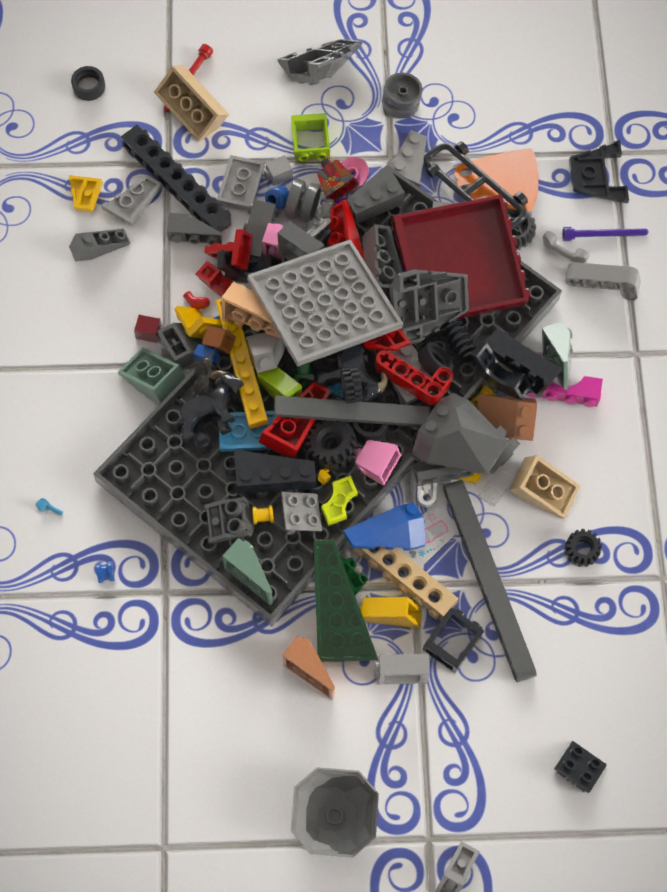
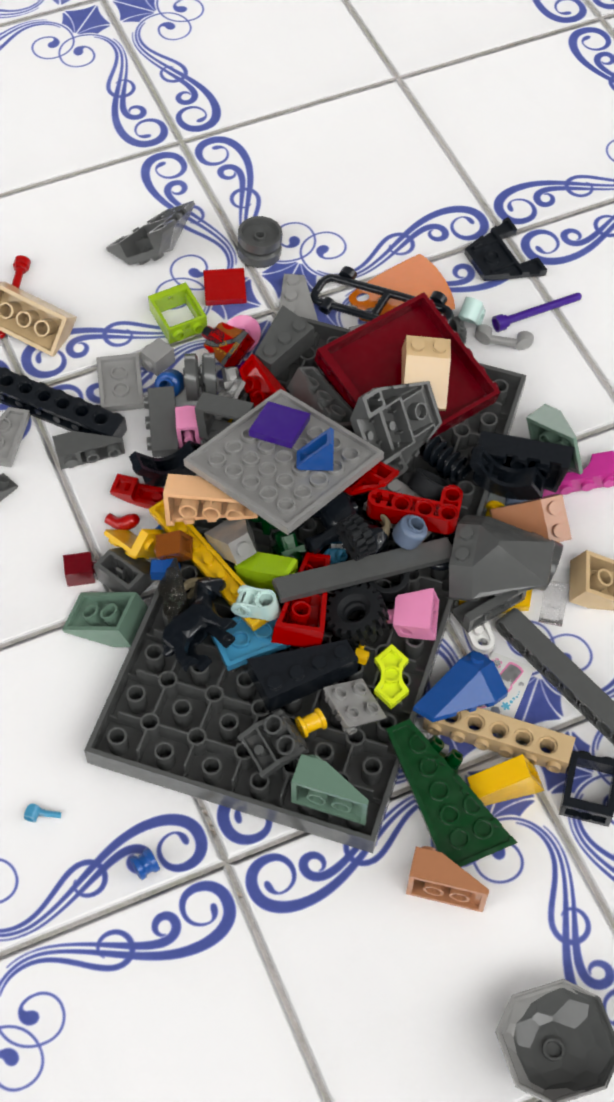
camera: 20 degrees left, 10 degrees down
(239, 249) = (153, 447): red bracket -> none
(255, 408) = (256, 603): none -> light aqua piece
(333, 272) = (279, 424): none -> dark purple tile
(349, 308) = (317, 453): none -> blue slope
(358, 125) = (224, 286): none -> red tile
(398, 394) = (410, 532): none -> sand blue head
(402, 669) = (552, 841): light grey window -> none
(475, 259) = (427, 361): none -> tan slope
(546, 218) = (472, 311): none -> light aqua piece
(605, 277) = (562, 350): light grey beam -> none

